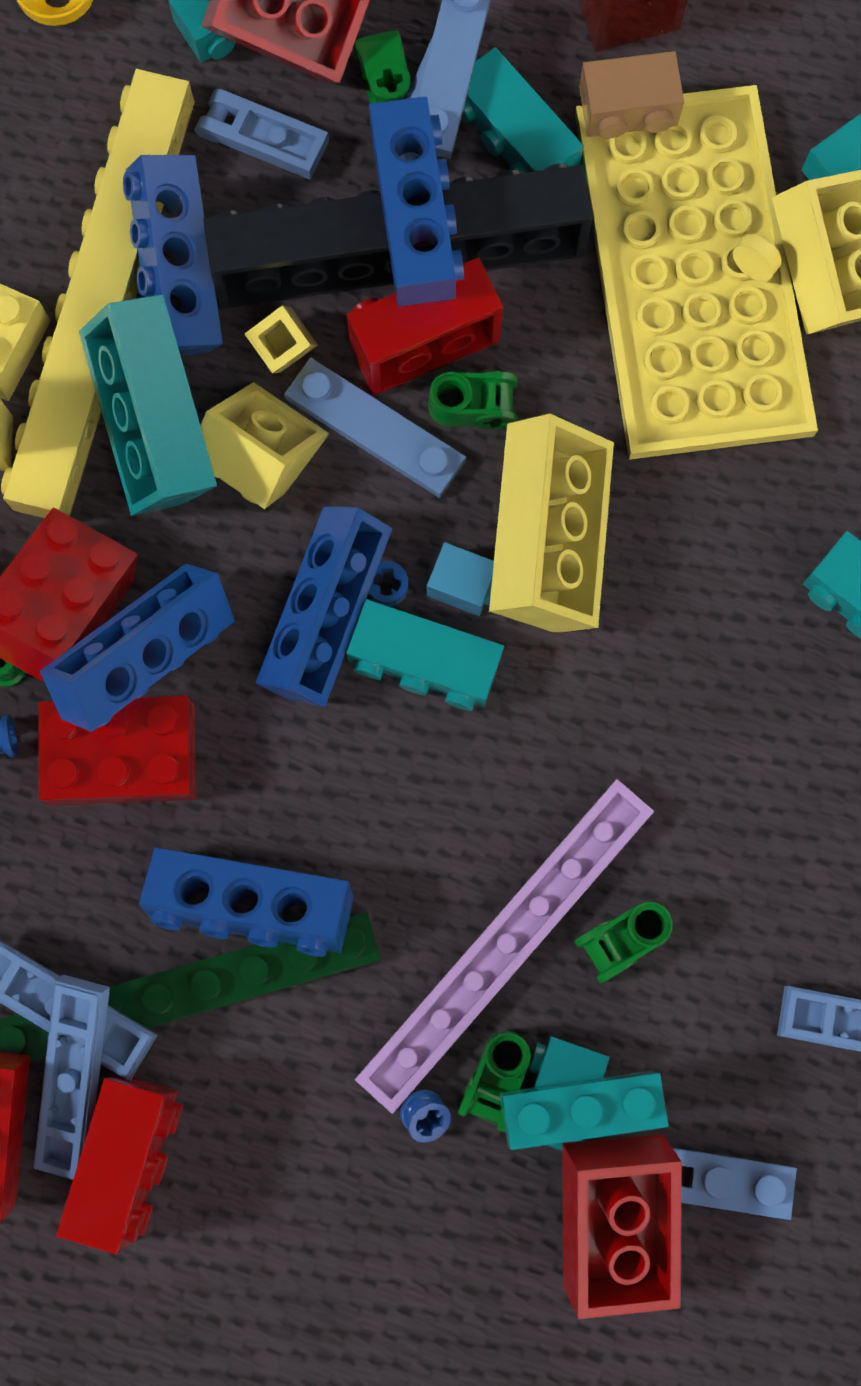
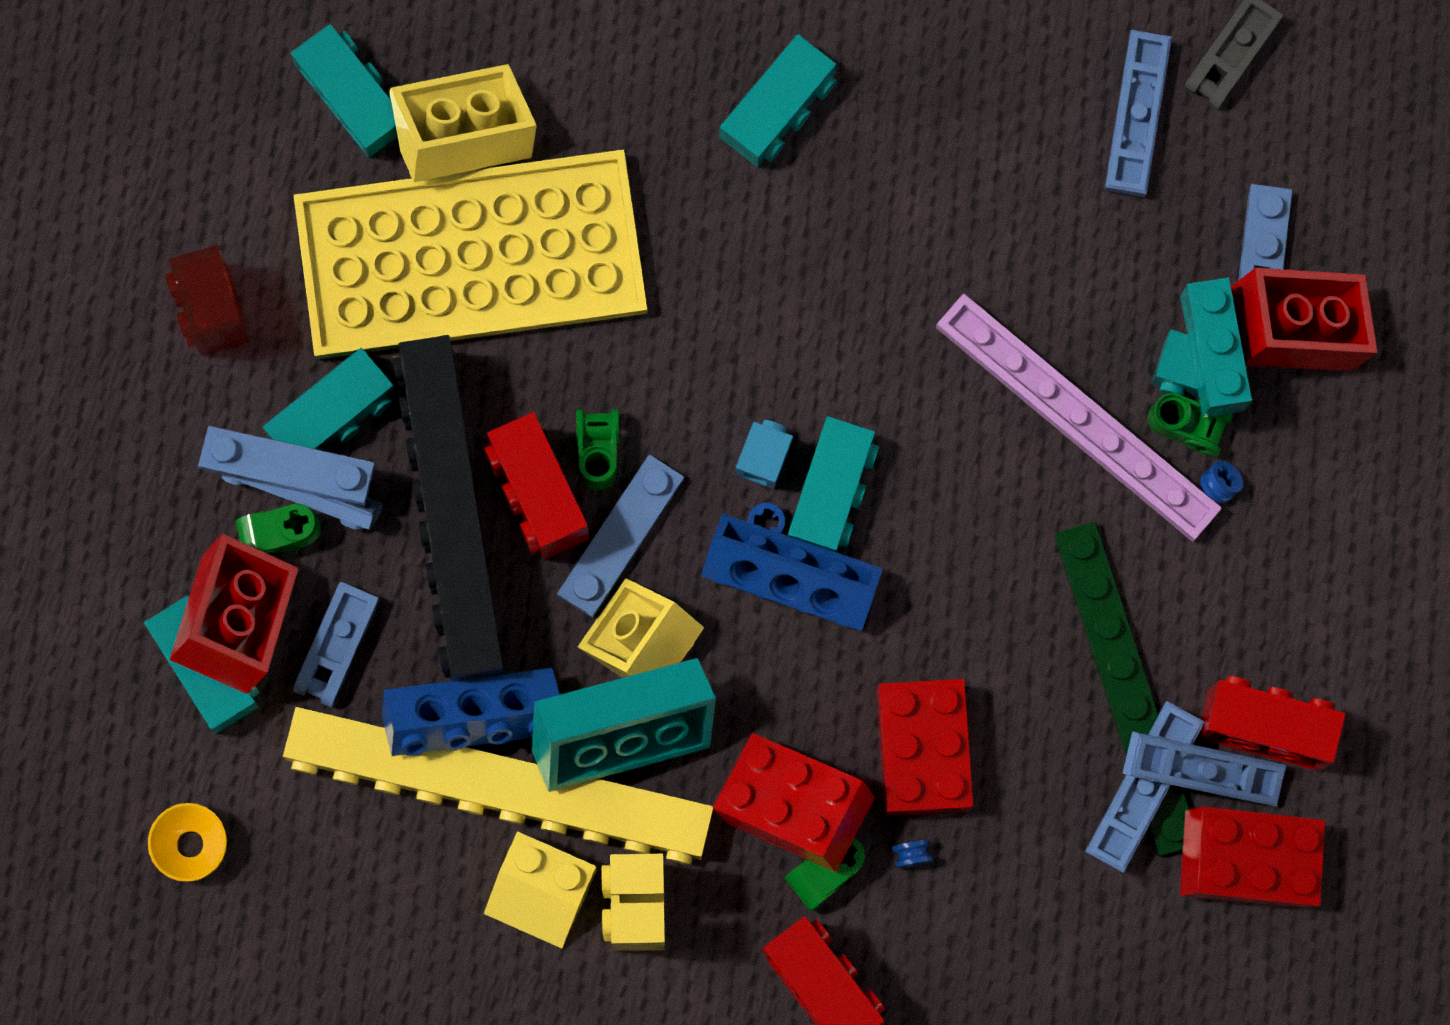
camera: 95 degrees left, 0 degrees up
(138, 647) = (839, 722): blue brick -> none
(177, 874) = (1049, 564): blue brick -> none
(281, 339) = (546, 615): light yellow brick -> none
(396, 130) = (423, 503): blue brick -> none
(552, 525) = (720, 375): light yellow brick -> none
(623, 940) = (1073, 320): green piece -> none
(631, 94) = (313, 304): medium nougat brick -> none
(757, 257) = (470, 196): light yellow tile -> none

